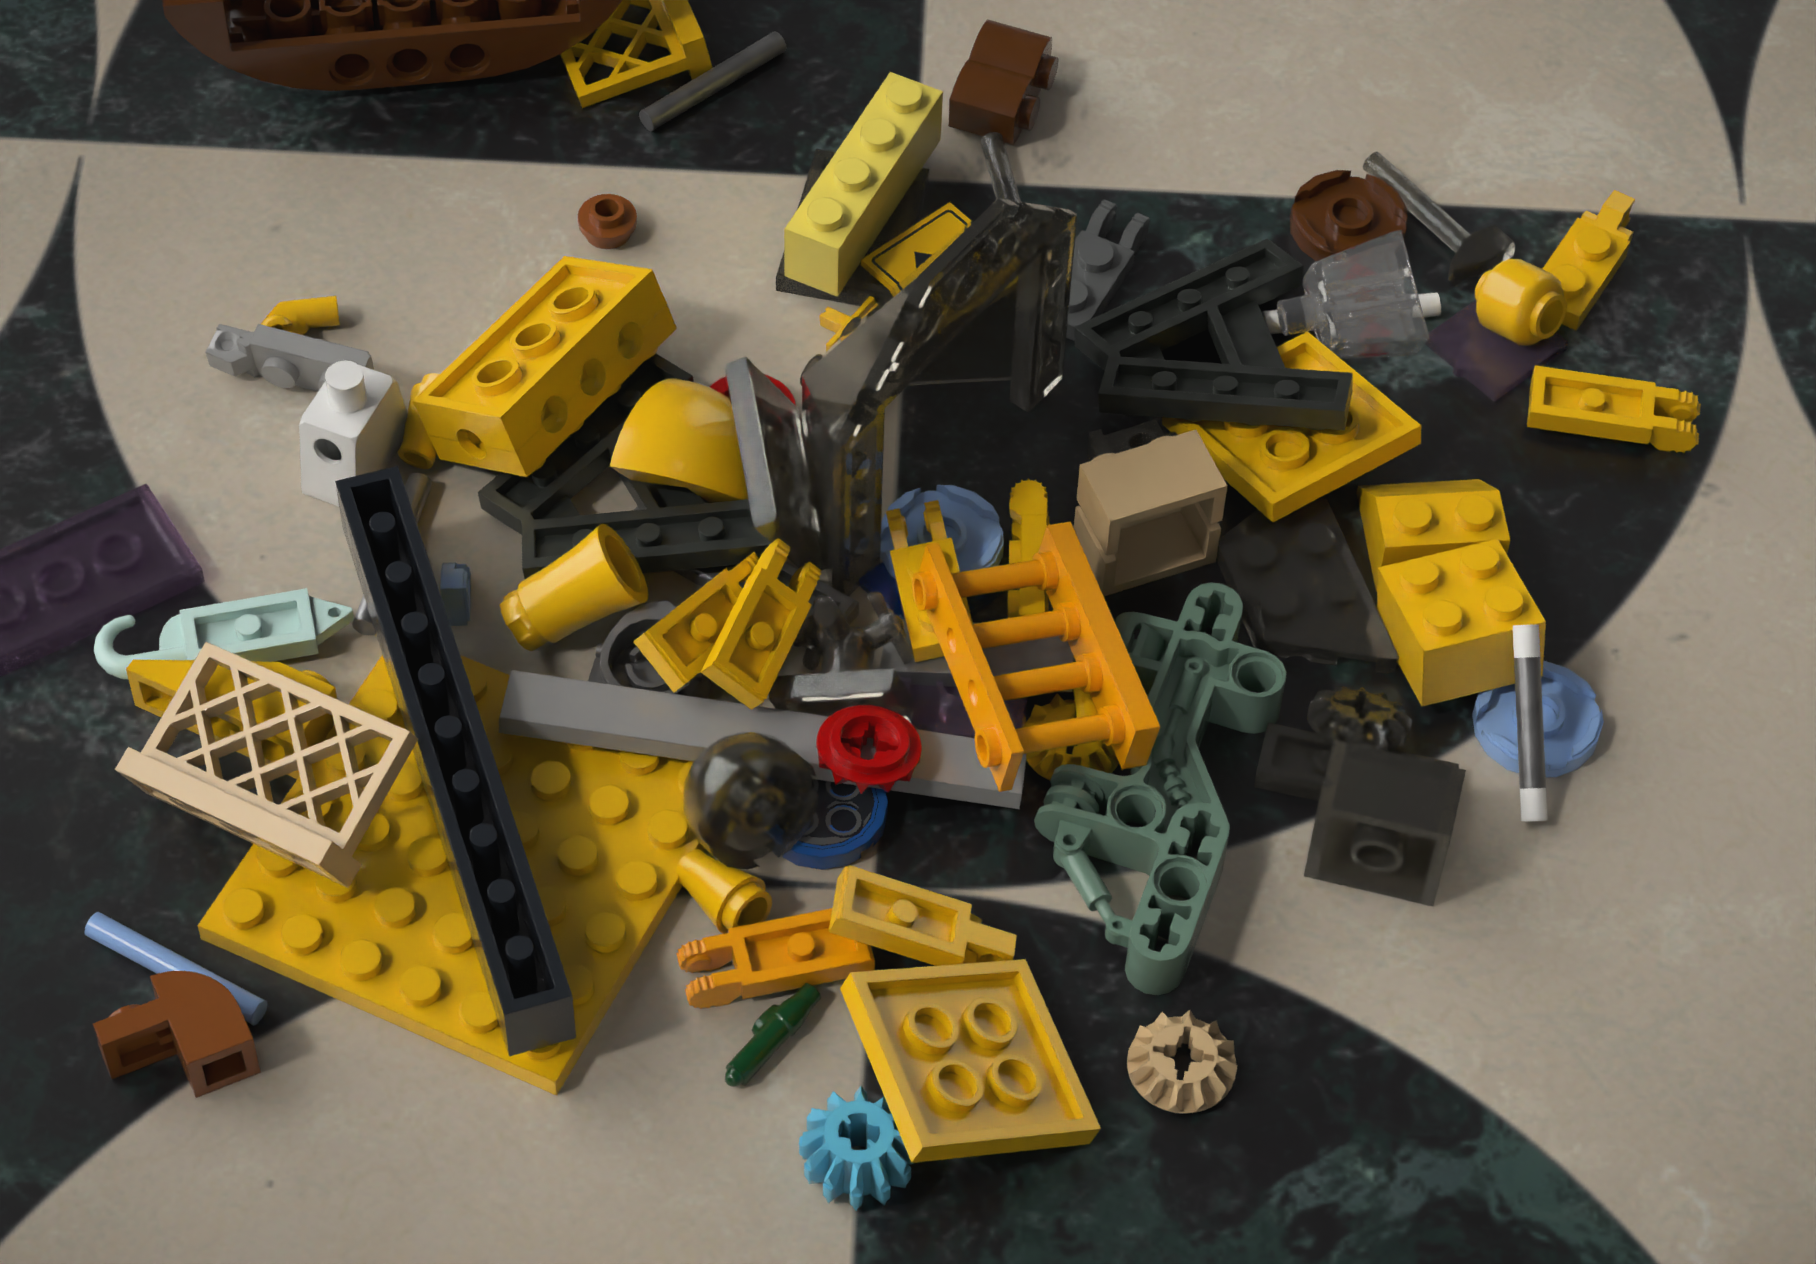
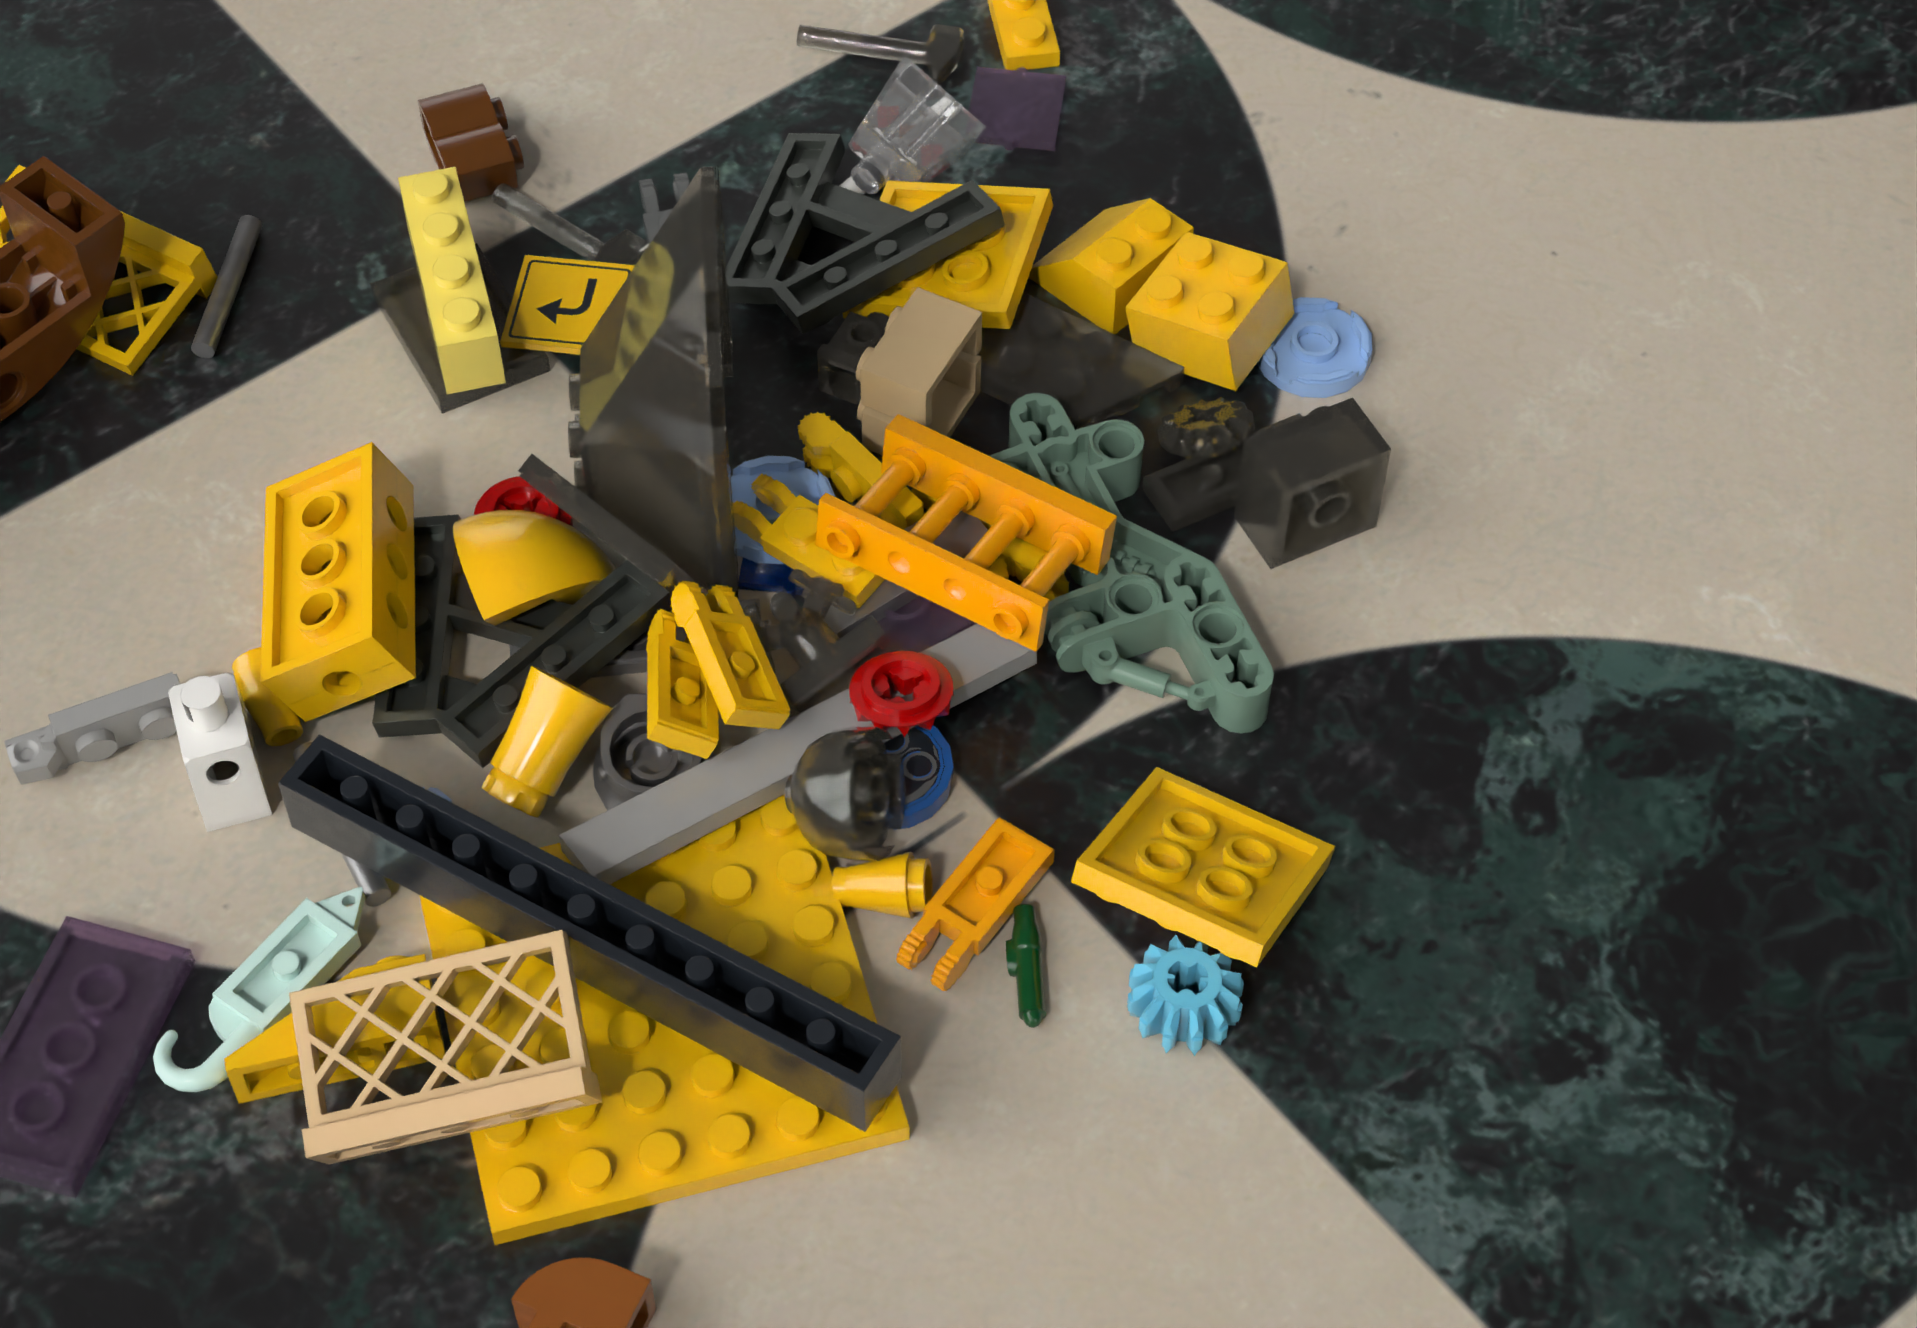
camera: 40 degrees left, 0 degrees up
(161, 959) = (471, 1287): light blue bar -> none
(303, 314) = (64, 687): yellow arm -> none
(607, 220) = (252, 446): dark orange plate -> none
(837, 321) = (526, 403): yellow piece -> none
(913, 921) = (1058, 797): yellow hinge -> none
(1154, 1073) = (1328, 780): tan gear -> none
(1343, 212) = (825, 87): reddish brown tile -> none
(1520, 302) = (1017, 63): yellow head -> none
(1529, 722) = (1332, 345): flat silver bar -> none
(1613, 408) = (1144, 101): yellow hinge -> none

